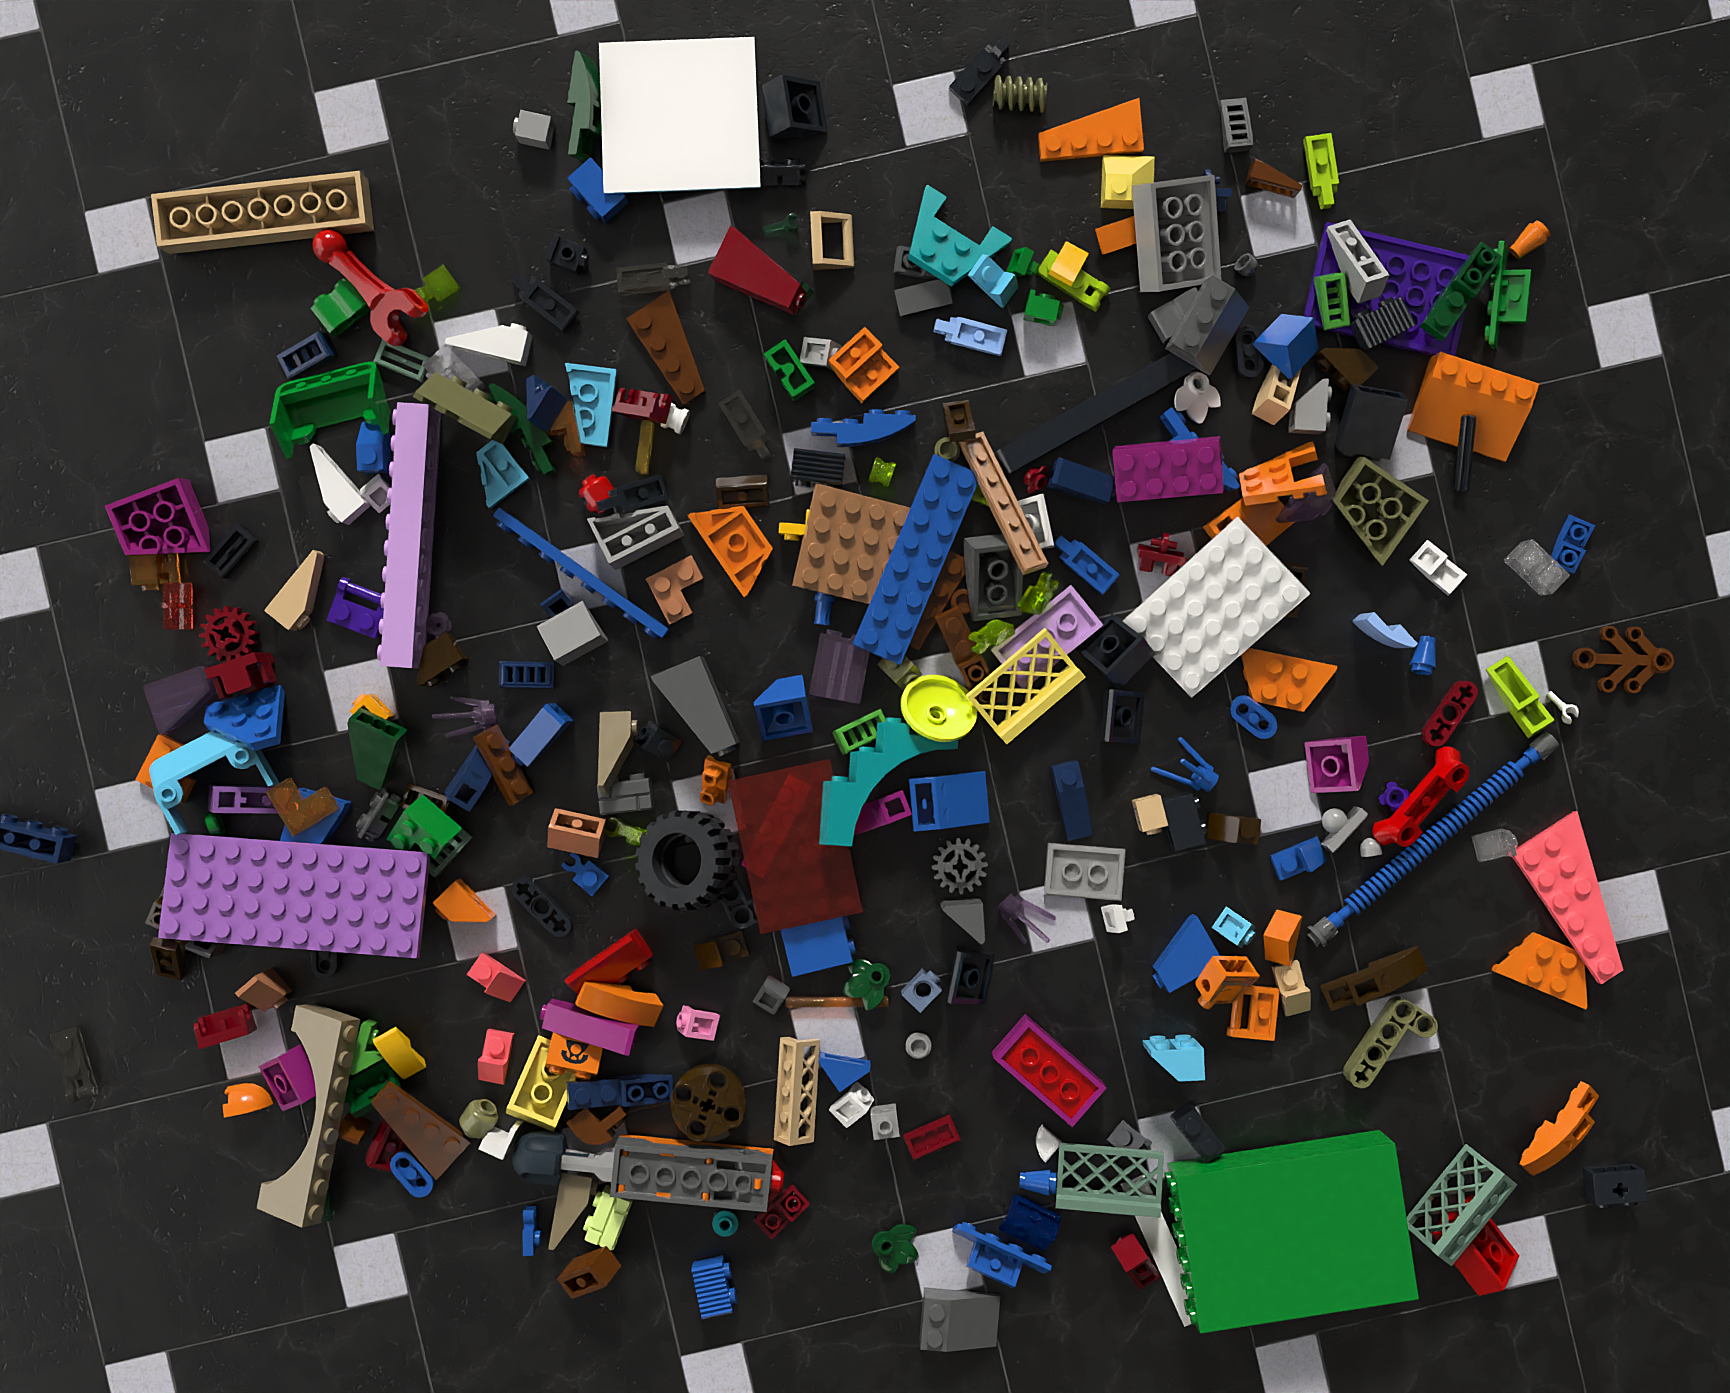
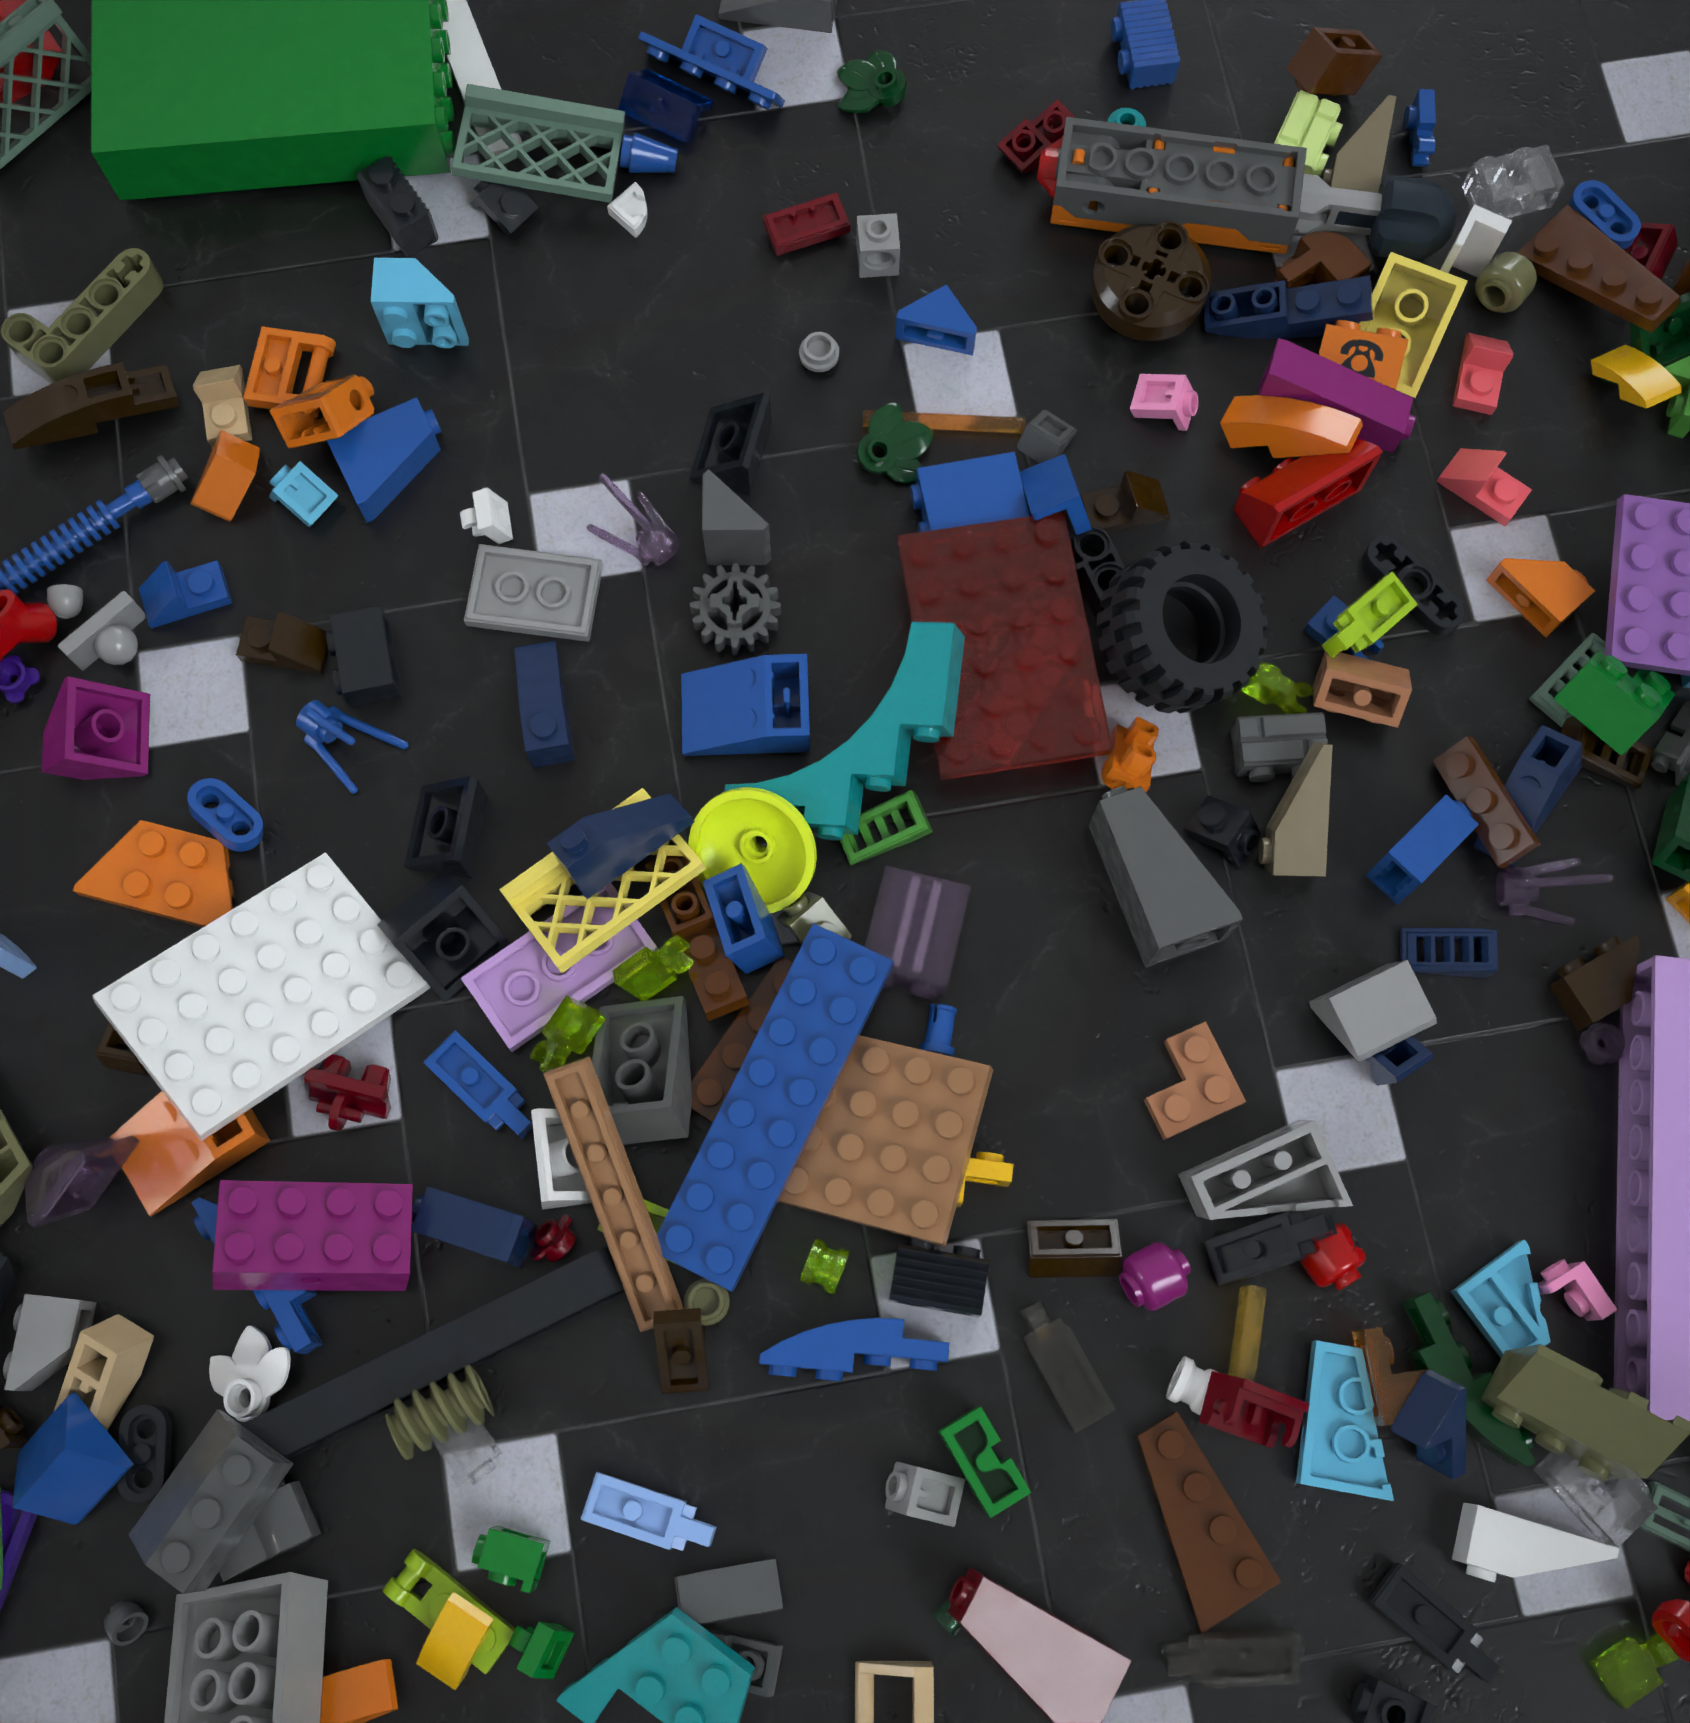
camera: 175 degrees left, 15 degrees down
(456, 481) = (1582, 1289): none -> bright pink bracket
(483, 1182) = (1514, 182): none -> clear brick
(570, 879) = (1370, 616): none -> lime hinge
(572, 568) = (1373, 1126): blue plate -> none
(697, 476) = (1155, 1276): none -> magenta head
(735, 543) = (1089, 1155): orange wing -> none
(766, 949) = (1051, 489): none -> blue panel
(783, 709) = (1012, 870): blue slope -> none
(792, 1092) = (1021, 295): tan fence -> none
(852, 1105) = (925, 272): white bracket -> none
(863, 365) = (848, 1466): orange slope -> none
(882, 811) = (849, 695): magenta slope -> none
(918, 1000) = (814, 413): sand blue brick -> none
(941, 667) = (743, 920): none -> blue slope
(961, 599) = (702, 1034): reddish brown tile -> none
(994, 280) = (597, 1617): medium azure slope -> none
(1017, 708) = (615, 840): none -> dark blue slope
(1048, 1070) = (618, 300): red brick -> none
(1072, 365) = (469, 1453): none -> clear bracket
(1088, 379) = (439, 1412): none -> olive piece
(1135, 1261) = (513, 44): dark red slope -> none
(1150, 814) = (416, 672): tan brick -> none
(1276, 479) = (131, 1203): orange wing -> none

